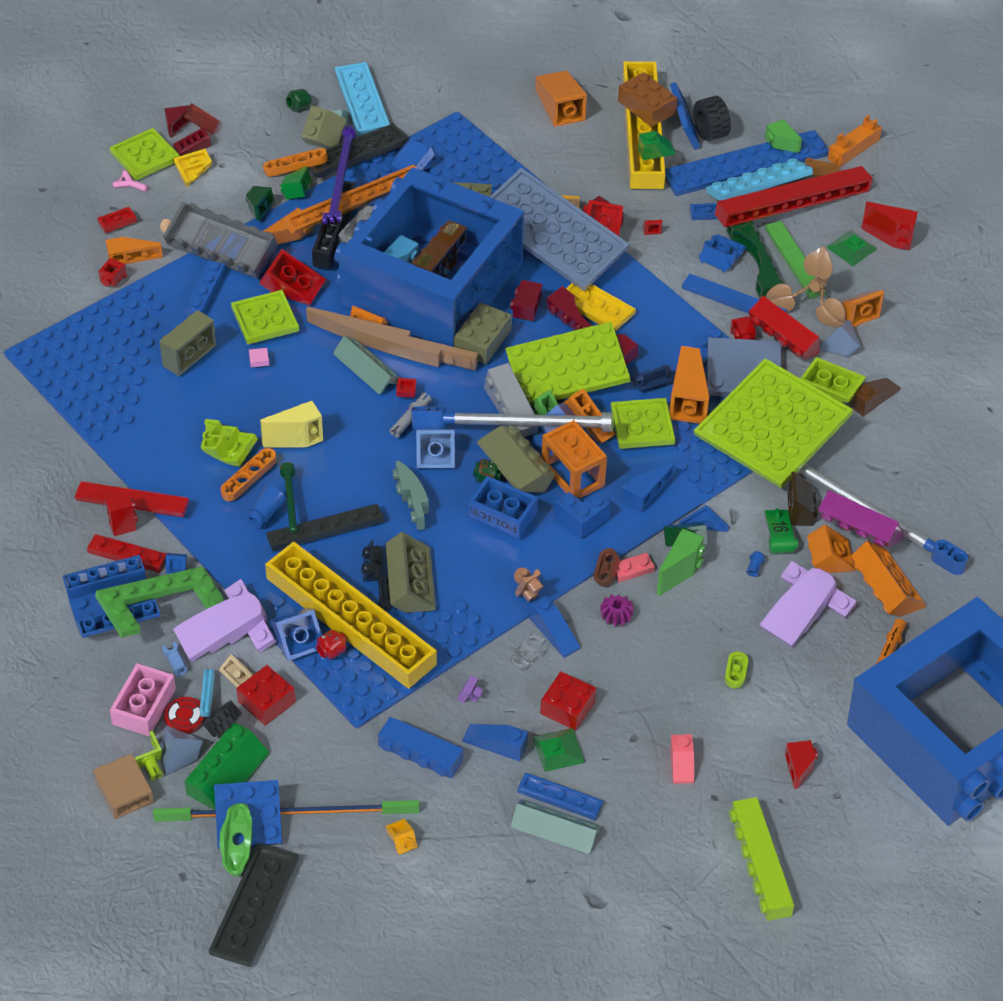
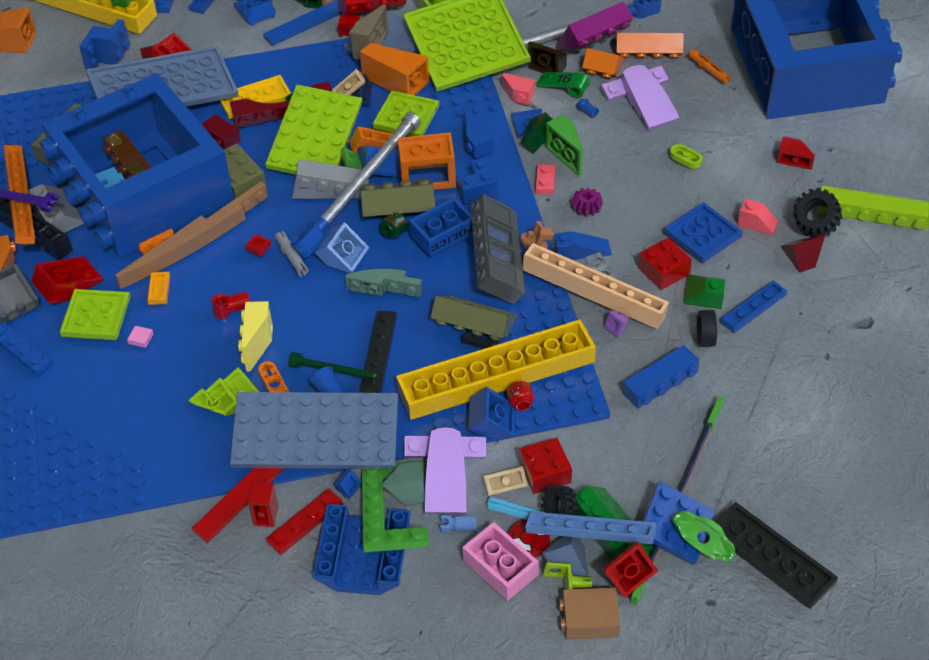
camera: 60 degrees left, 0 degrees up
(172, 791) = (630, 569): none -> red slope
(187, 343) = (89, 377): olive brick -> none
(192, 599) = (407, 483): none -> sand green slope
(197, 745) = (591, 527): none -> medium blue plate
(211, 514) = (315, 430): none -> sand blue plate
(319, 345) = (159, 288): none -> light orange tile
(324, 398) = (225, 304): none -> red piece
(365, 364) = (209, 264): sand green panel -> none
(372, 556) = (440, 338): black hinge -> none
(402, 836) = (746, 421): light orange bracket -> none
(493, 555) = (497, 249): none -> dark grey window
(496, 760) = (706, 328): none -> black tyre
(498, 651) = (595, 286): none -> light nougat brick
(498, 739) = (677, 323): blue slope -> none
(555, 826) = (784, 318): panel -> none
(586, 170) = (105, 45): none -> blue bracket
(606, 568) = (541, 191): copper plate -> none
(634, 720) = (703, 232): none -> blue plate
(647, 362) = (350, 83): none -> tan slope
(652, 227) = (195, 35): red slope -> none
(656, 814) = (804, 252): none -> dark red slope
(709, 803) = (813, 199): none -> black tyre
(723, 345) = (369, 29): none -> dark tan slope
(742, 498) = (518, 88): none -> coral slope

